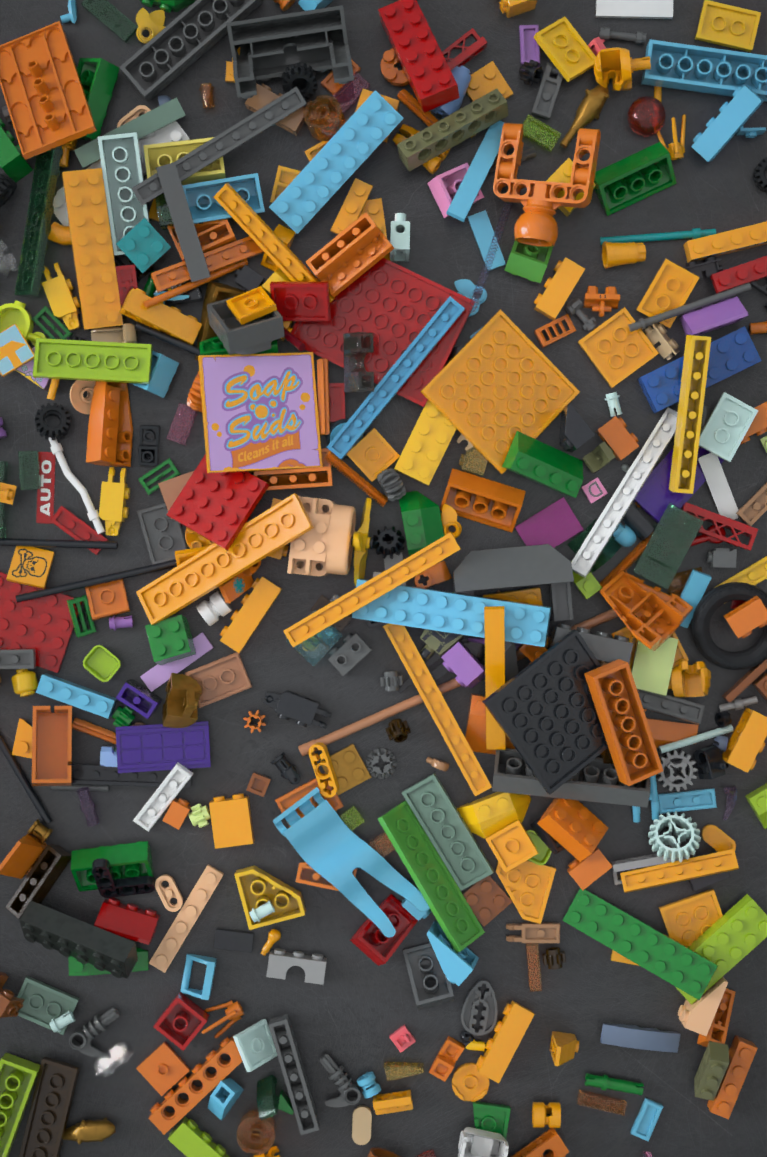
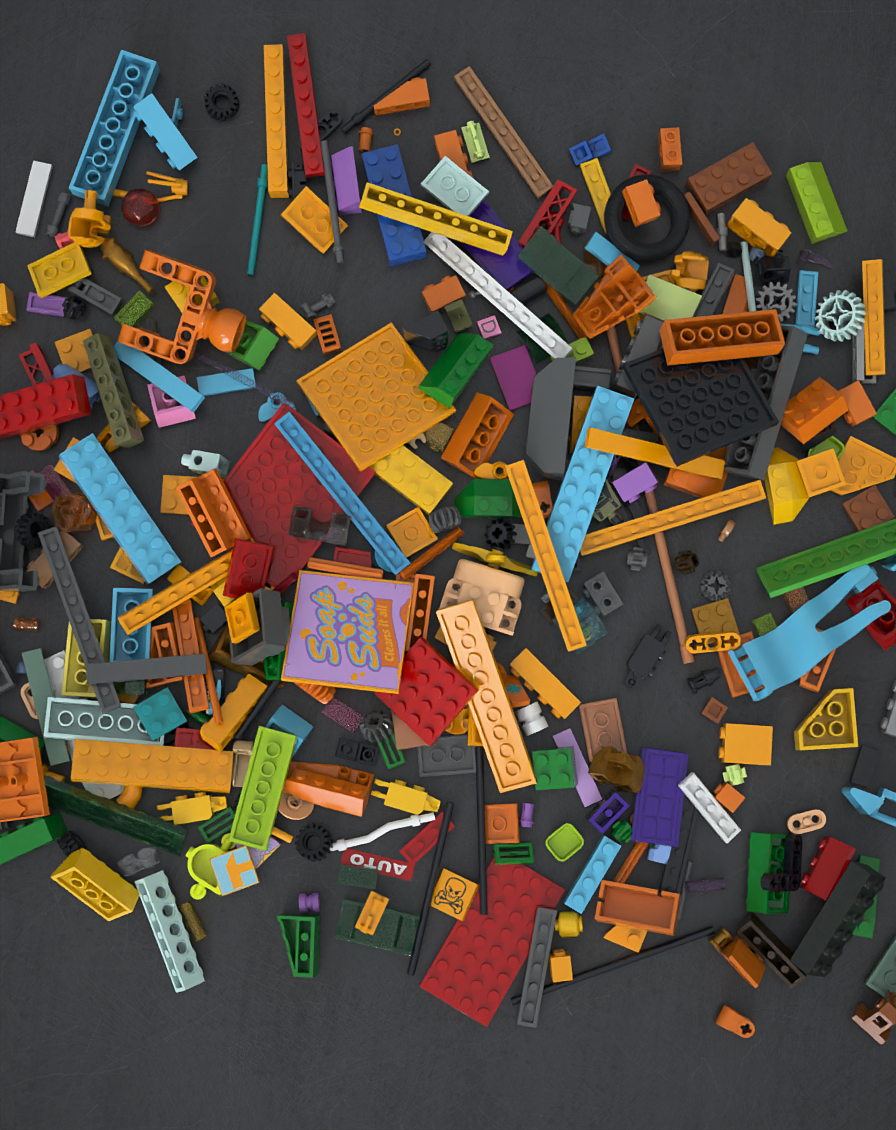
camera: 85 degrees left, 5 degrees down
(175, 458) = (376, 726): none -> dark grey gear
(186, 918) = (834, 810): light nougat plate -> none
(199, 944) = (863, 801): none -> medium azure tile
(253, 726) = (646, 698): orange gear -> none
(261, 911) = (842, 729): light aqua pin -> none
(273, 936) = (868, 725): light orange piece -> none
(352, 205) = (166, 504): light orange plate -> none
(405, 97) = (84, 423): orange axle -> none
(448, 831) = (795, 533): sand green plate -> none
(601, 302) = (309, 284): orange hips -> none
(613, 402) = (408, 292): light aqua pin -> none
(616, 349) = (357, 279): light orange plate -> none
(622, 253) = (266, 255): light orange plant -> none
(624, 535) = (539, 306): medium azure piece -> none
(634, 178) = (197, 229): green slope -> none
(667, 345) = (365, 231): tan hinge -> none
(717, 838) = (849, 276): light orange tile -> none
(718, 486) = (508, 209): white sticker -> none
(728, 25) = (71, 115): yellow plate -> none

